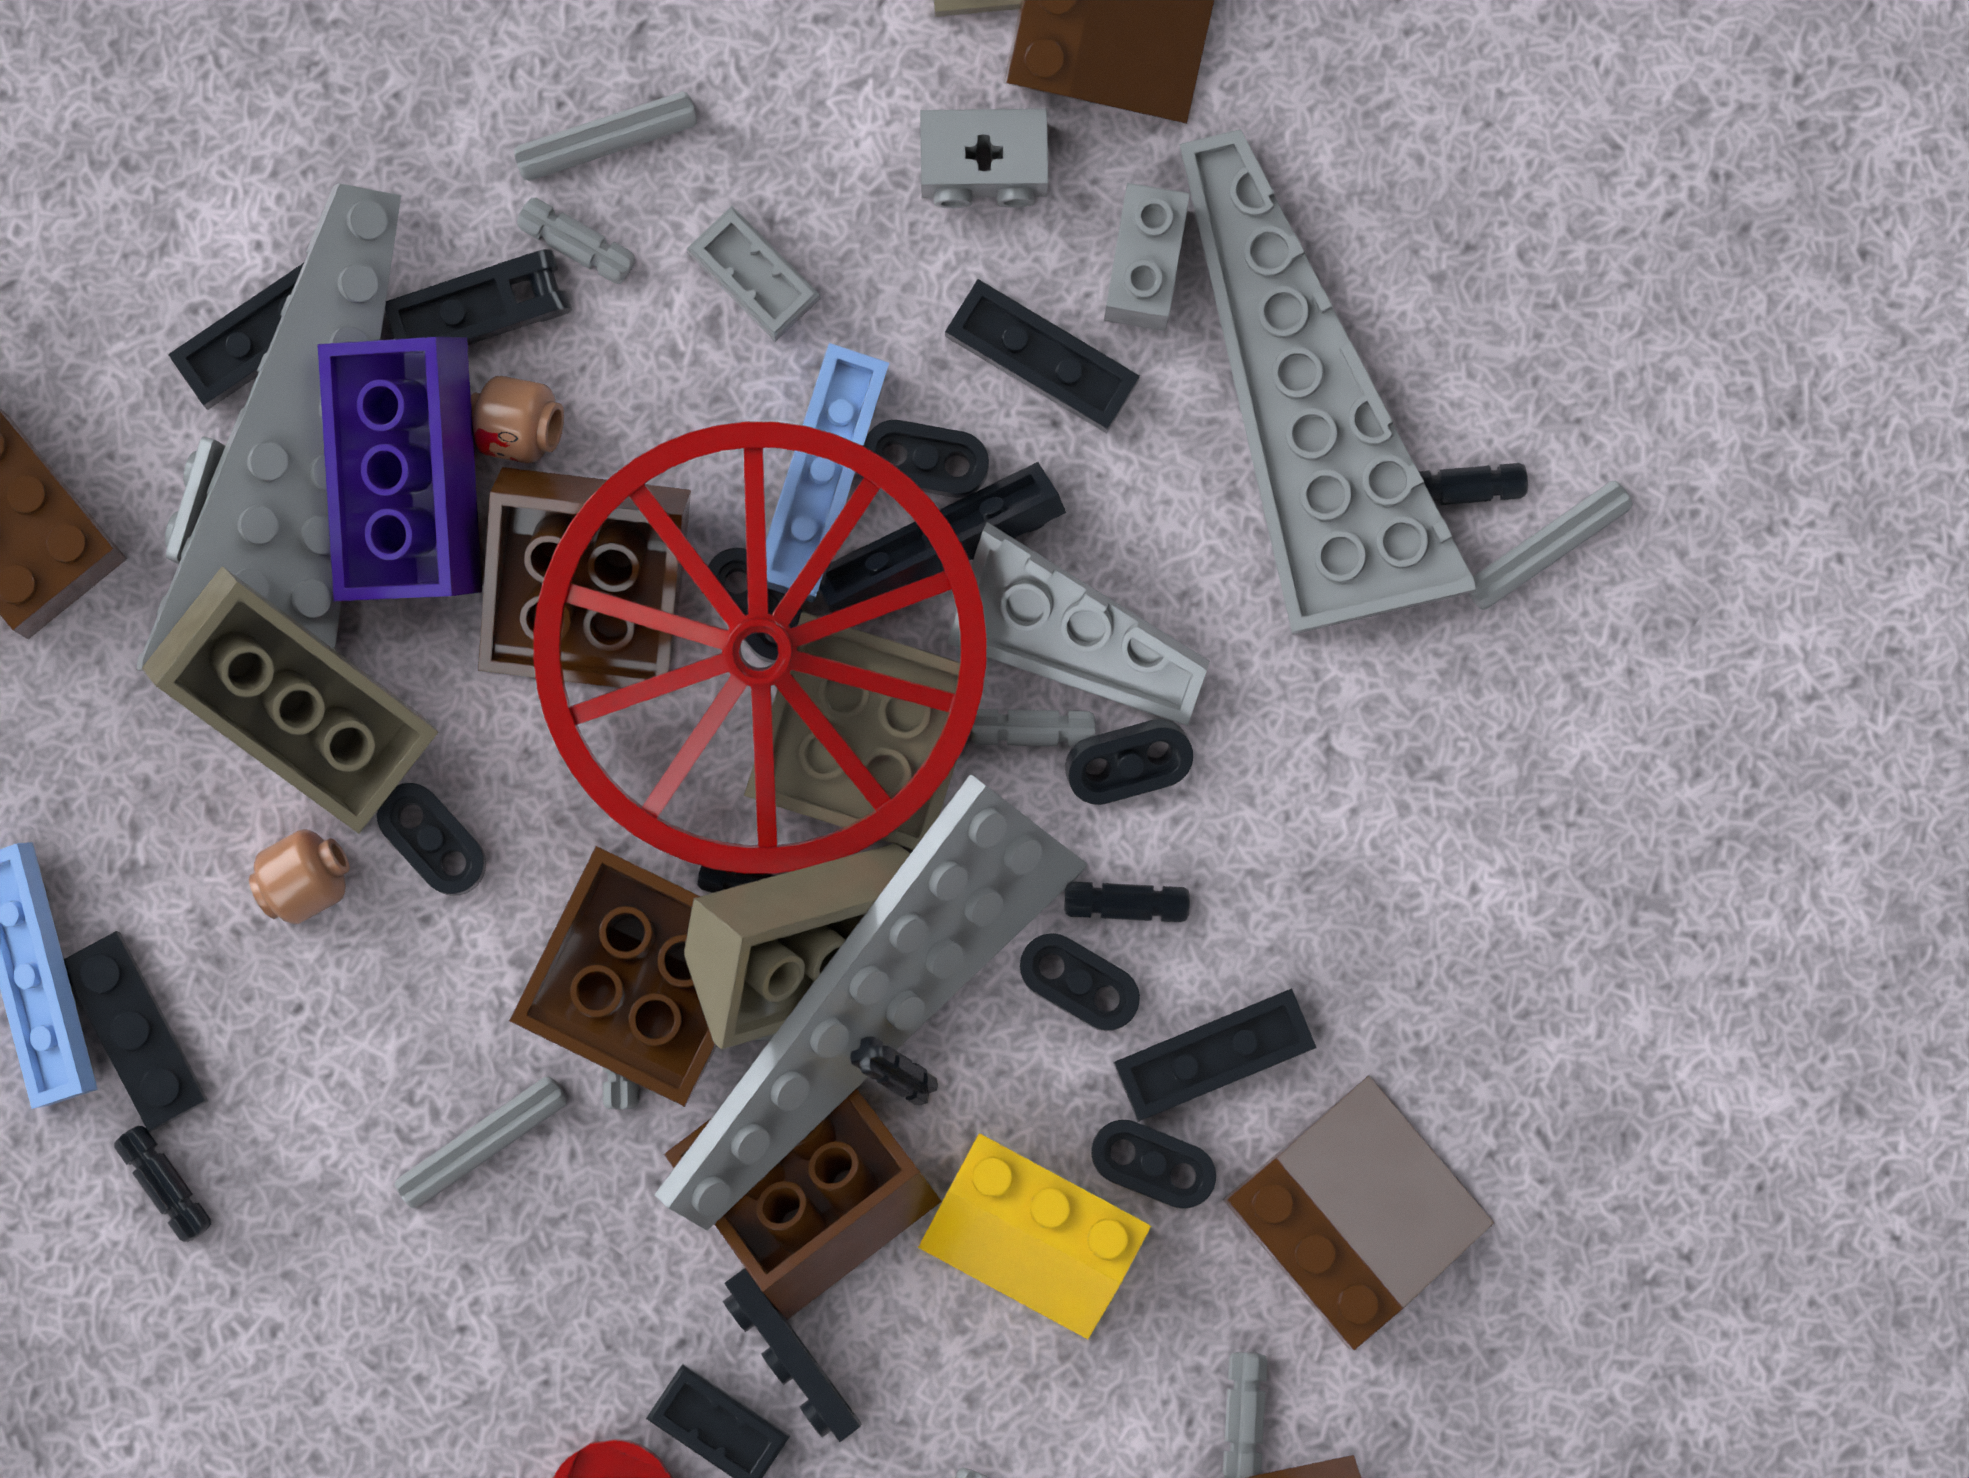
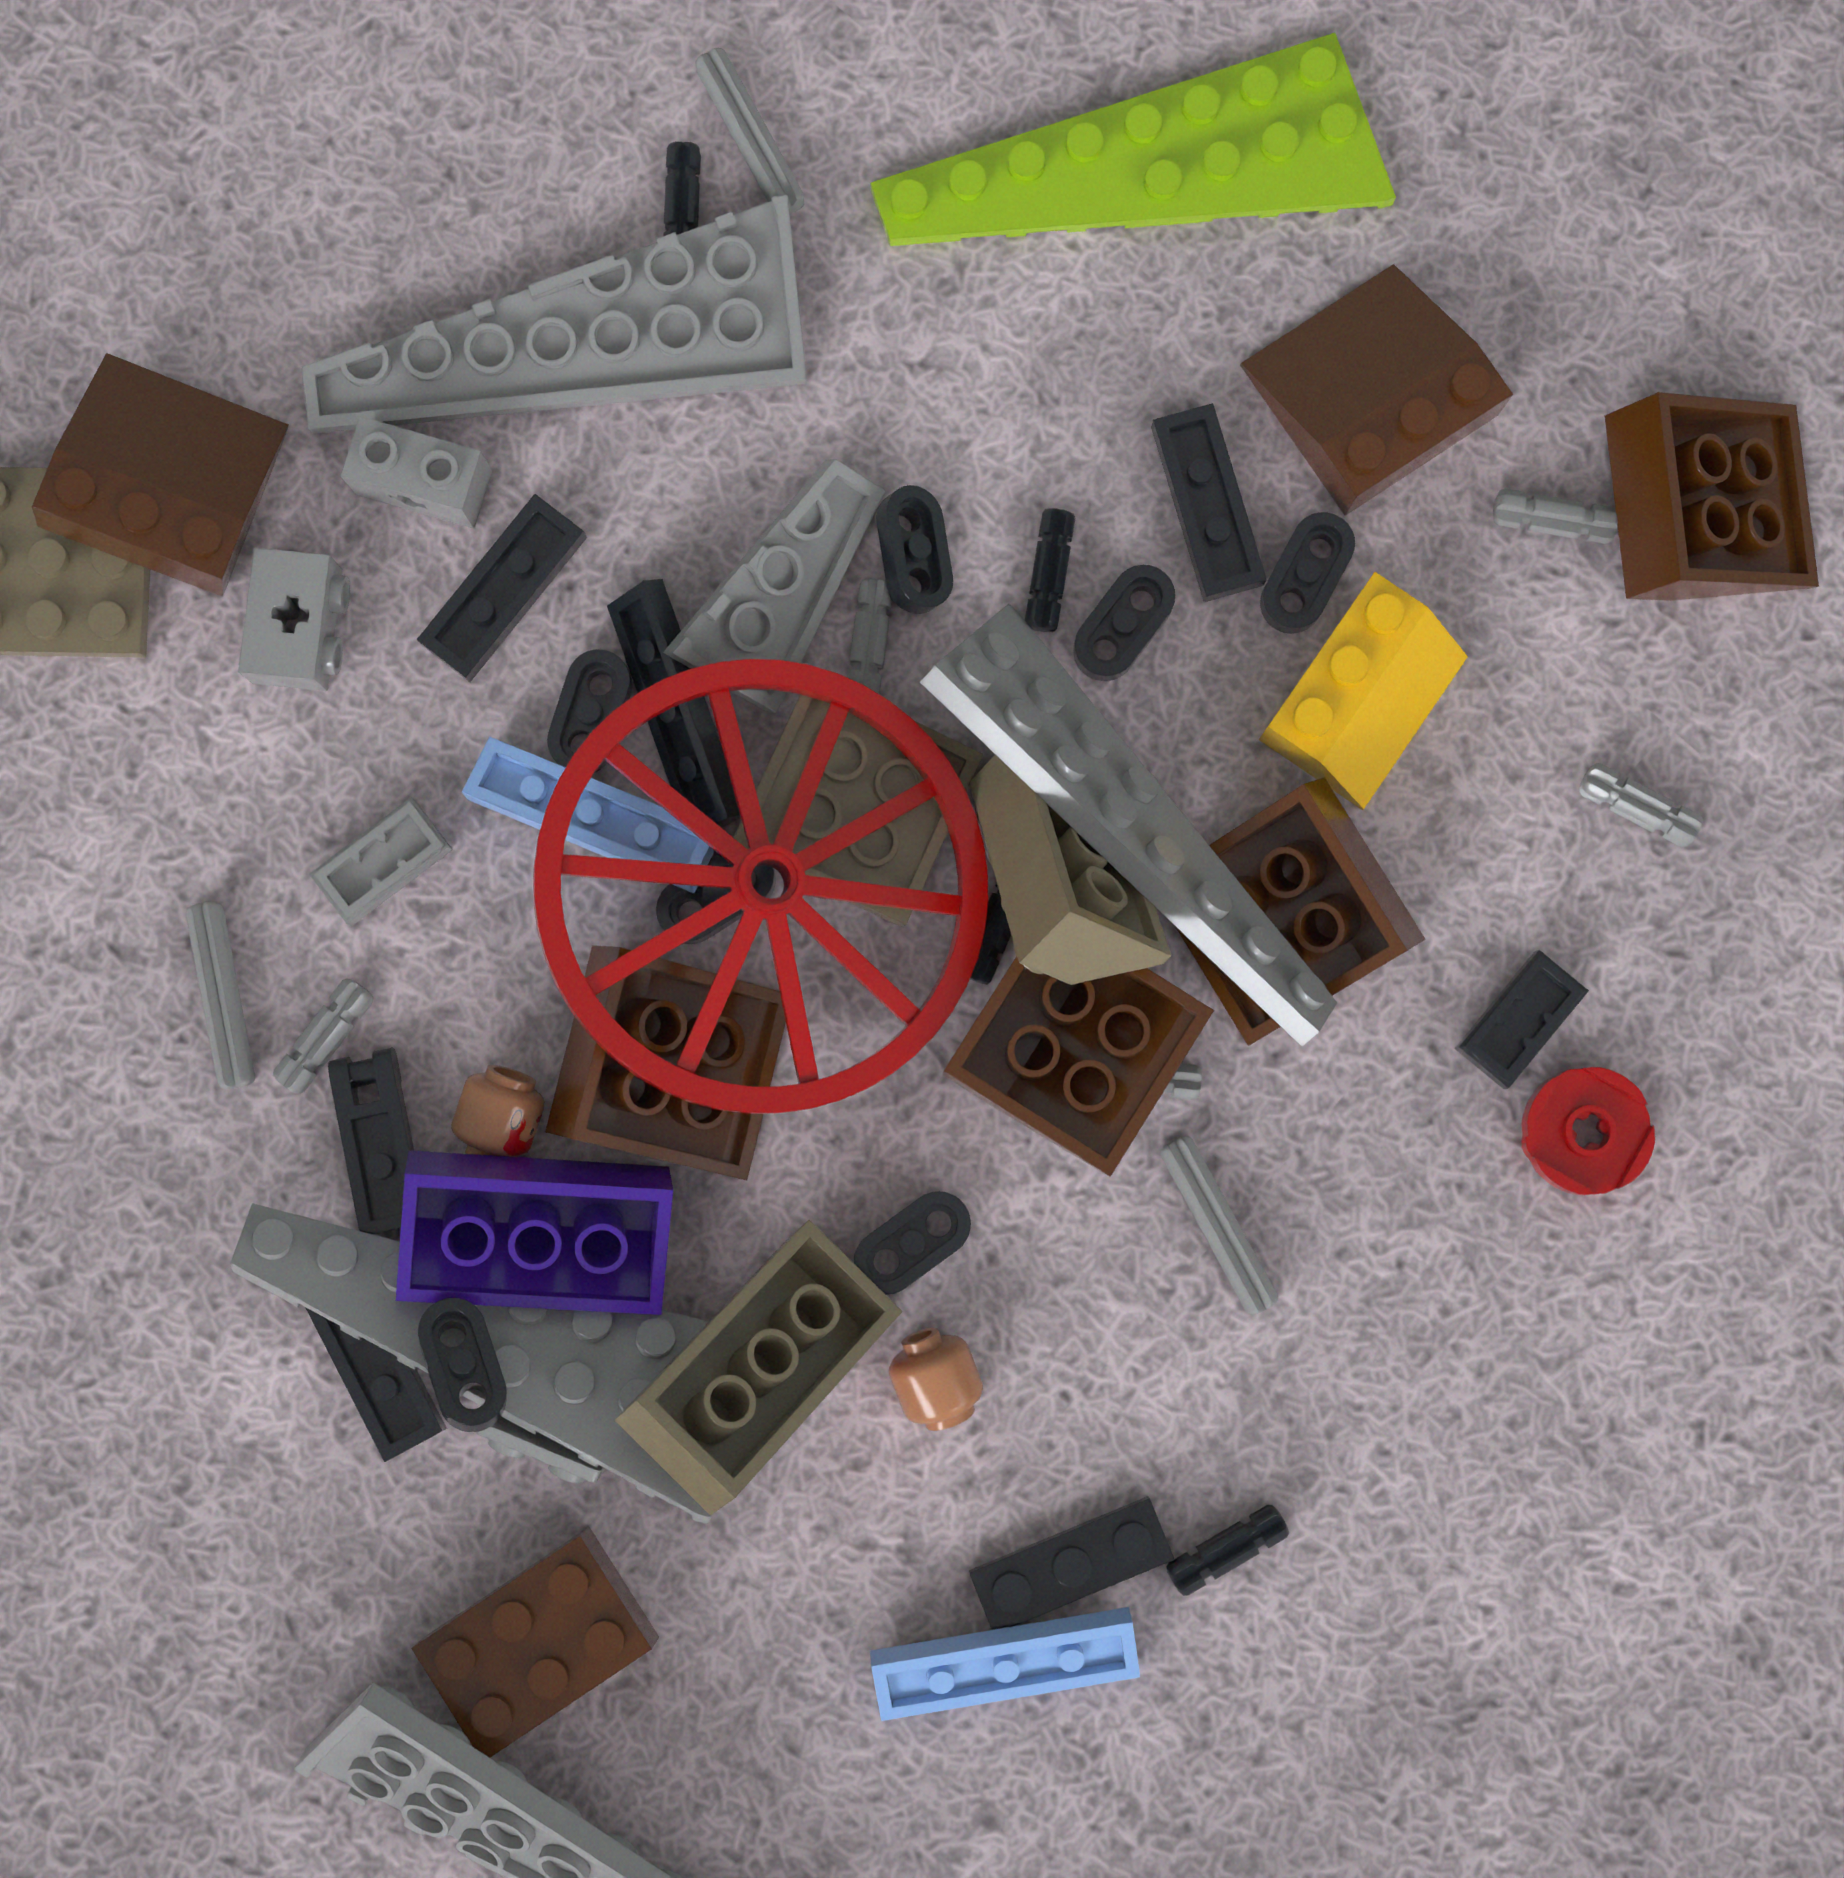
camera: 80 degrees left, 0 degrees up
(260, 416) = (464, 1366): none -> black plate
(790, 1357) = (1462, 941): black plate -> none
(894, 1071) = (1195, 805): black axle -> none
(1595, 1029) = (1216, 146): none -> lime wing

